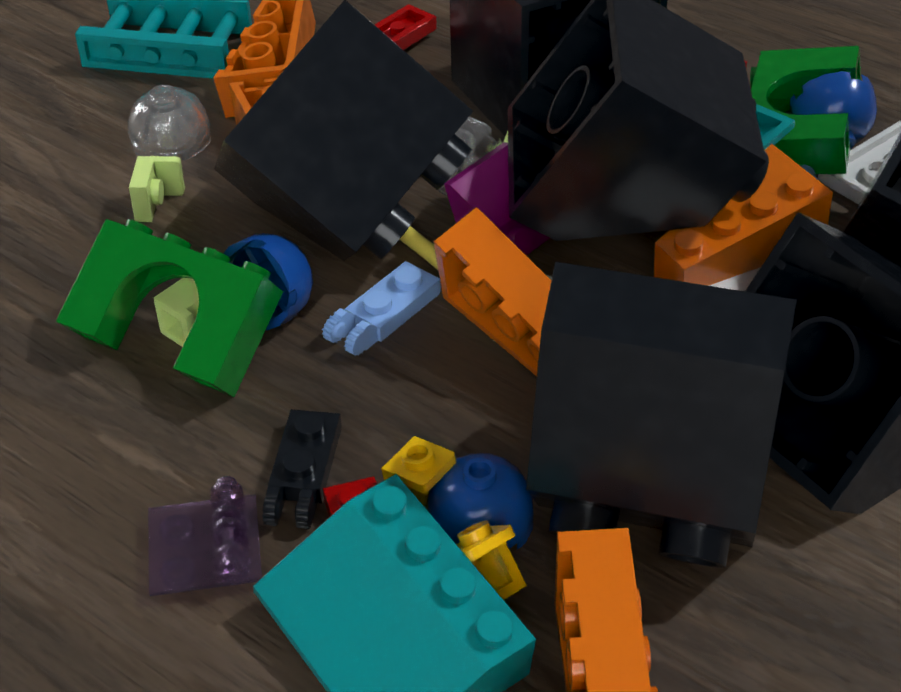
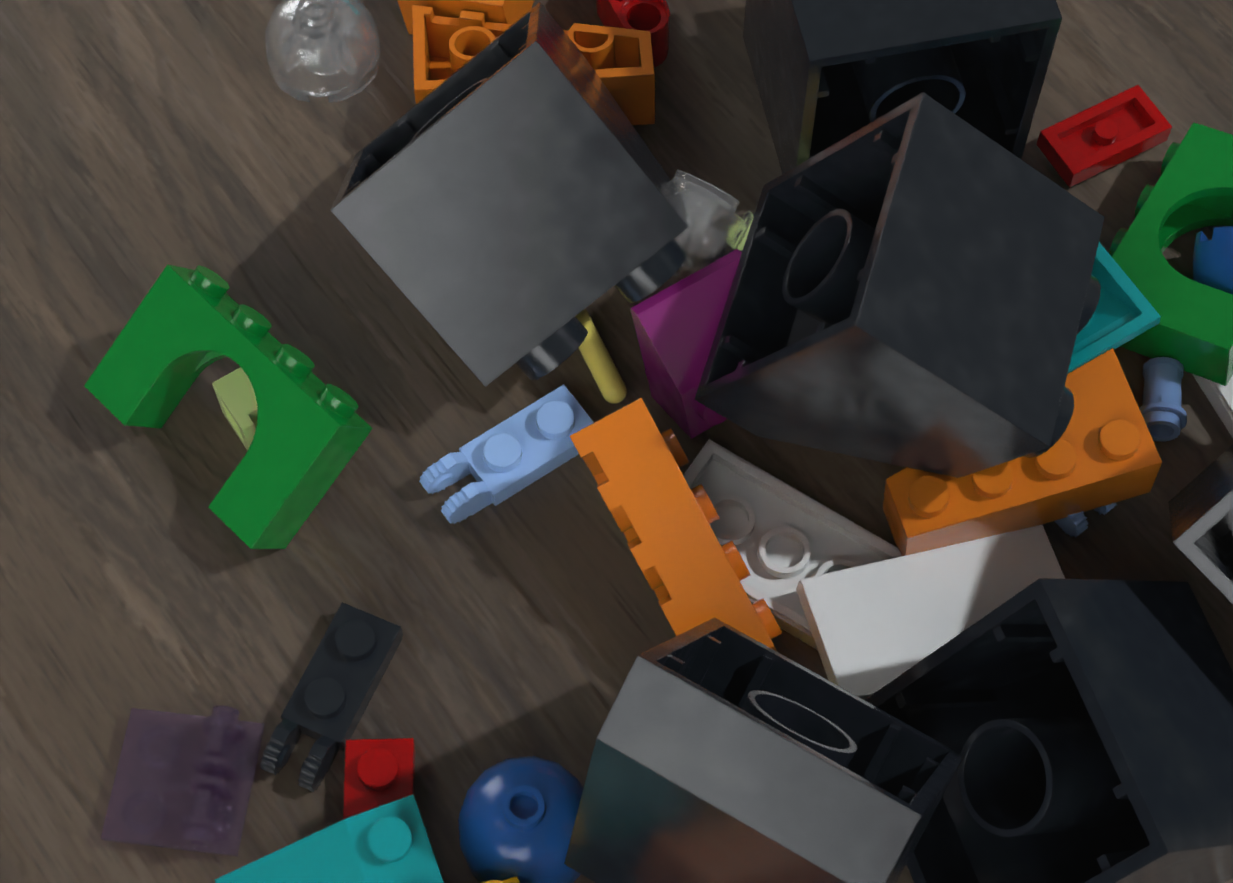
camera: 15 degrees right, 20 degrees up
(151, 181) = (264, 154): yellowish green bracket -> none
(287, 268) = (379, 373): blue cylinder -> none
(420, 466) = (456, 767): yellow bracket -> none

